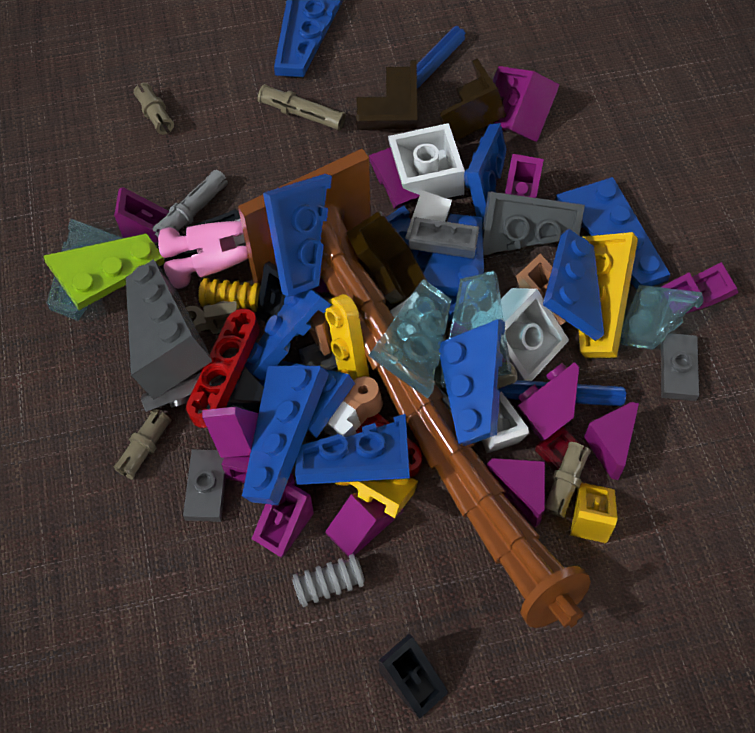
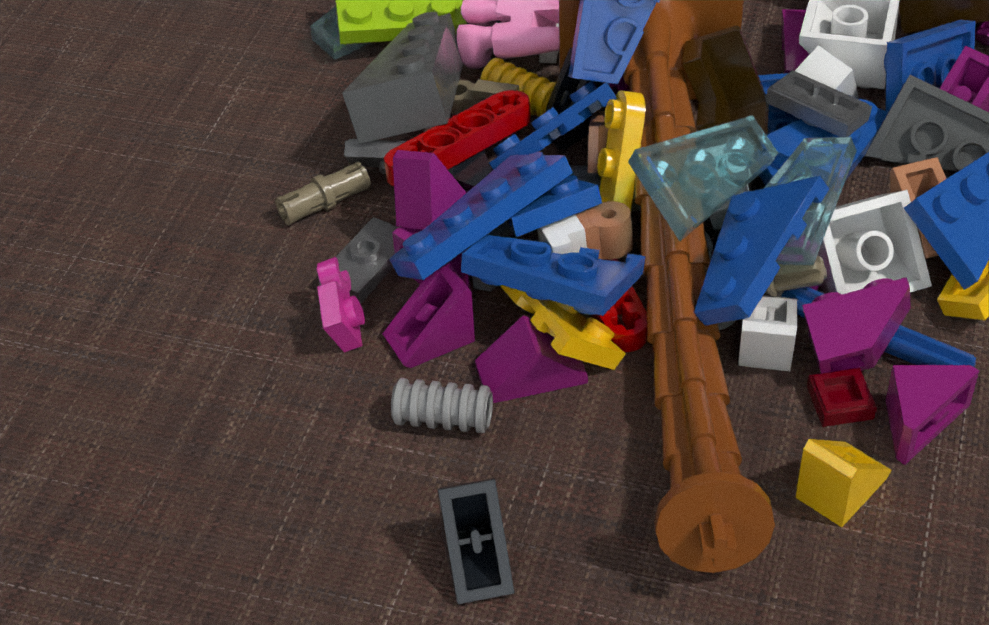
camera: 30 degrees right, 15 degrees down
(219, 540) = (339, 311): none -> dark pink plate
(523, 485) = (760, 405): magenta slope -> none
(567, 479) = (826, 420): dark tan pin -> none

